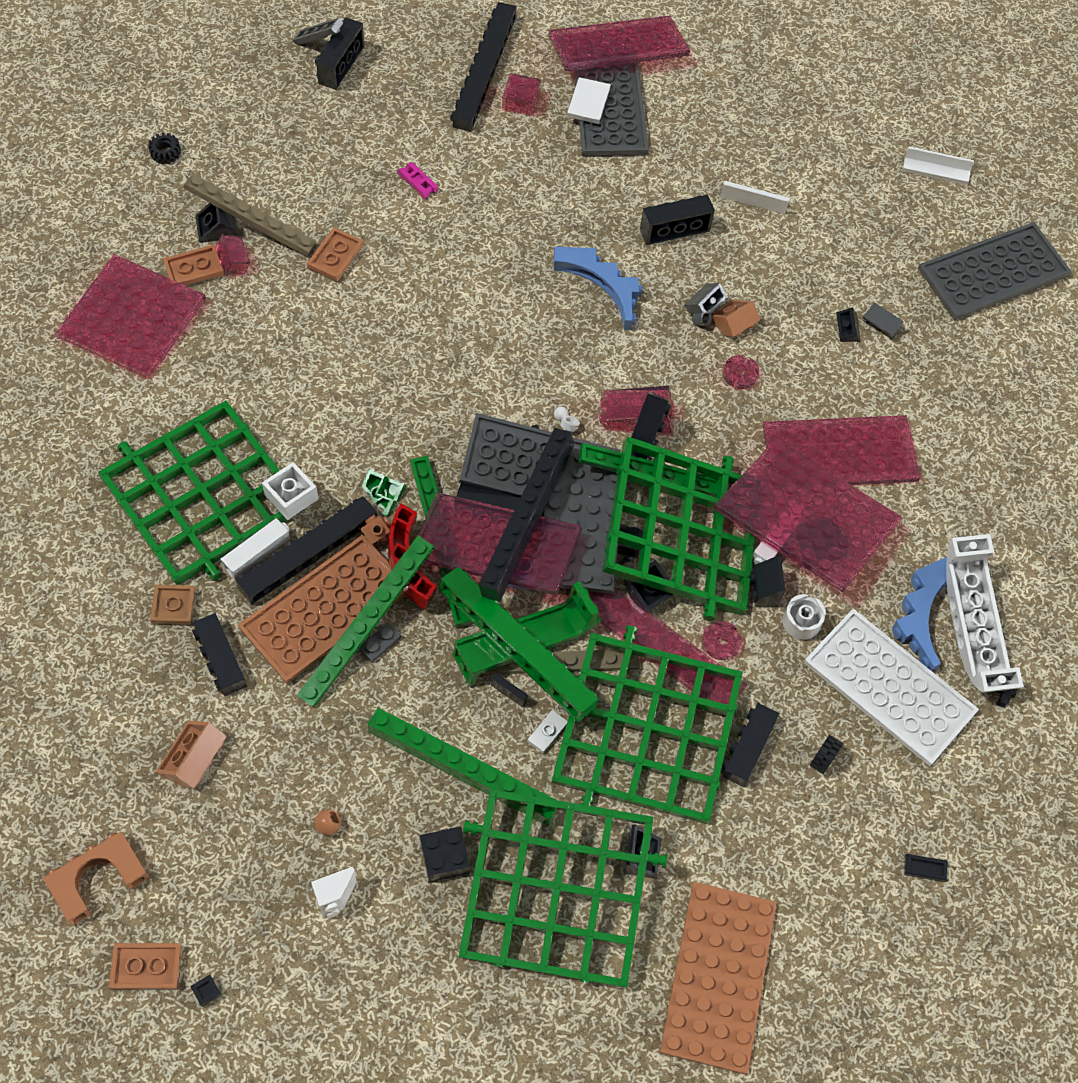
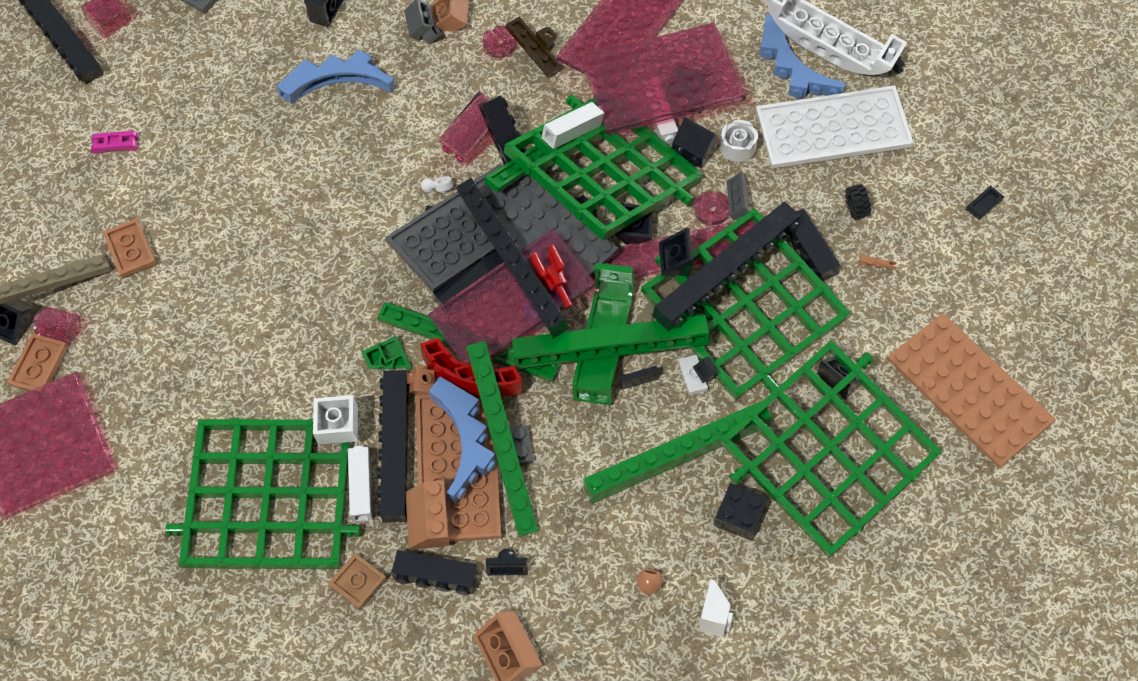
camera: 45 degrees left, 0 degrees up
(261, 616) = (427, 515): none -> nougat slope
(265, 702) = (506, 564): none -> black tile
(352, 598) = (473, 434): none -> medium blue arch
(534, 554) = (553, 274): none -> red plant
(555, 736) = (705, 369): none -> black plate
(640, 639) = (676, 254): none -> black slope
(660, 685) = (726, 266): none -> black brick
(694, 475) = (572, 125): none -> white brick
(746, 652) = (737, 196): none -> dark grey plate
(759, 400) = (536, 46): none -> dark brown plate
(782, 812) = (870, 261): none -> nougat piece

